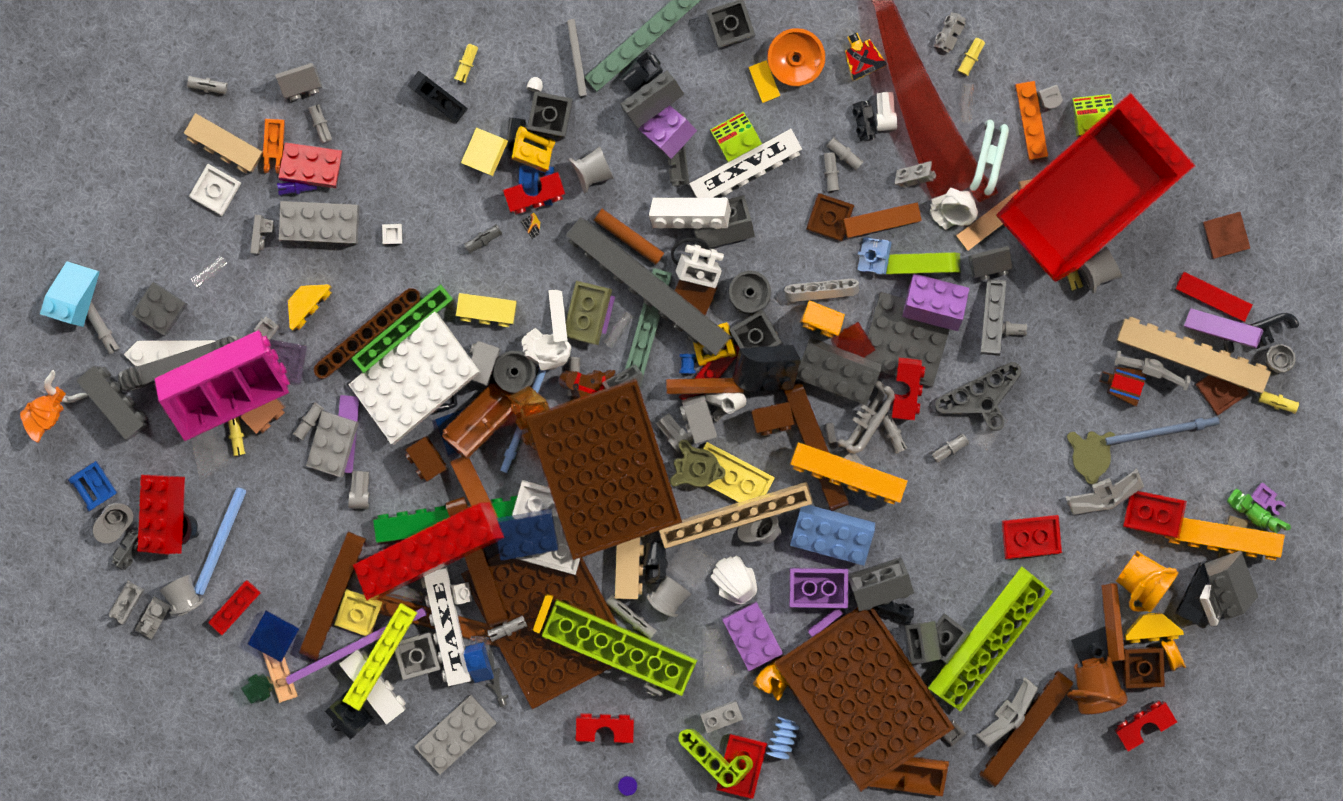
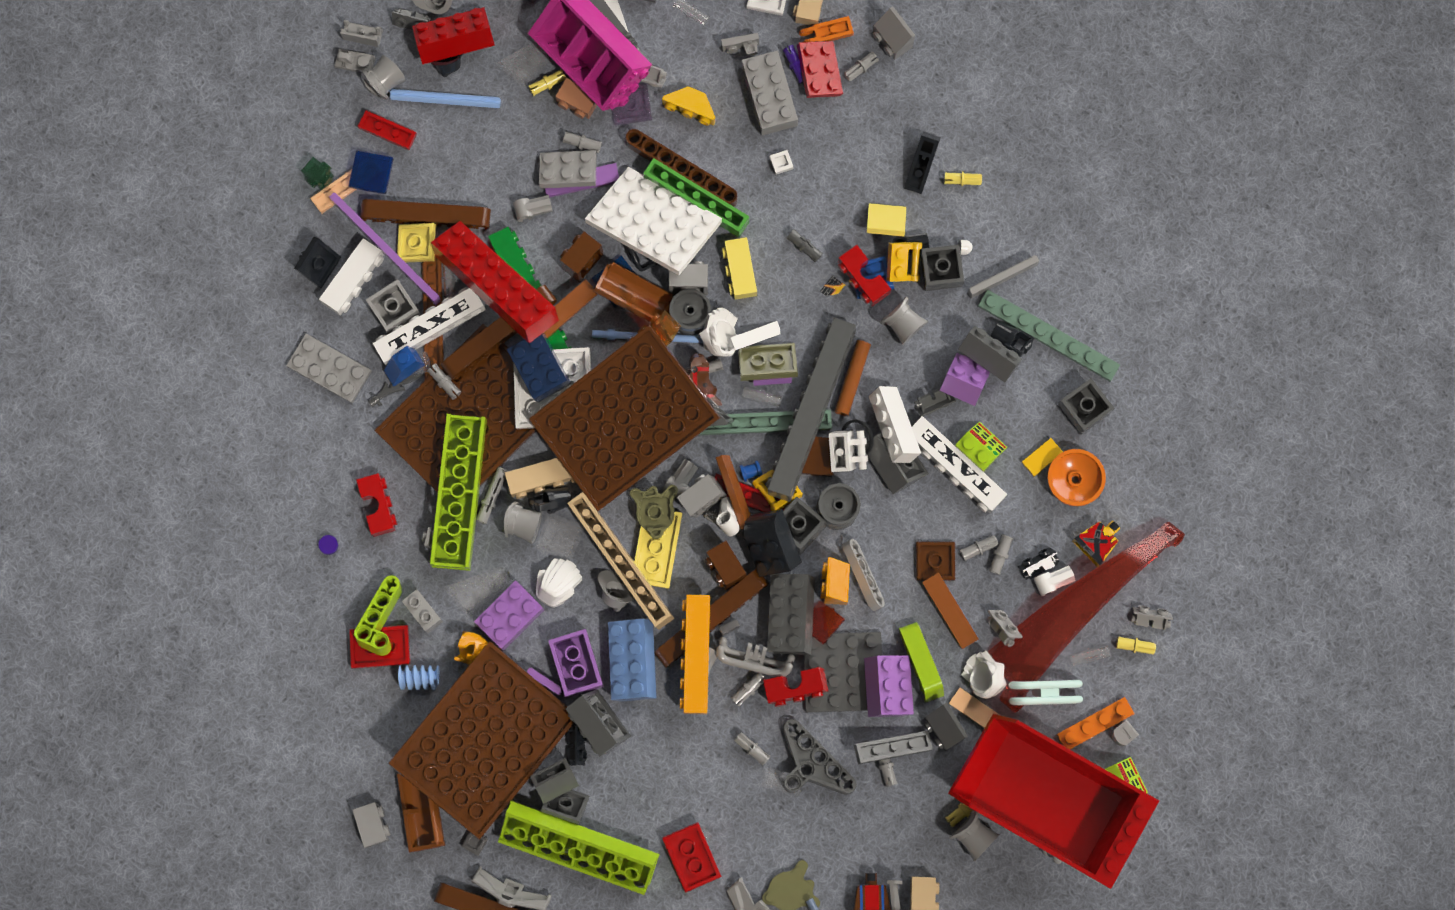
camera: 80 degrees right, 10 degrees down
(380, 657) = (381, 271): neon yellow tile -> none
(461, 593) = (464, 328): white bracket -> none
(543, 612) = (469, 409): yellow tile -> none
(882, 251) = (913, 614): medium blue piece -> none

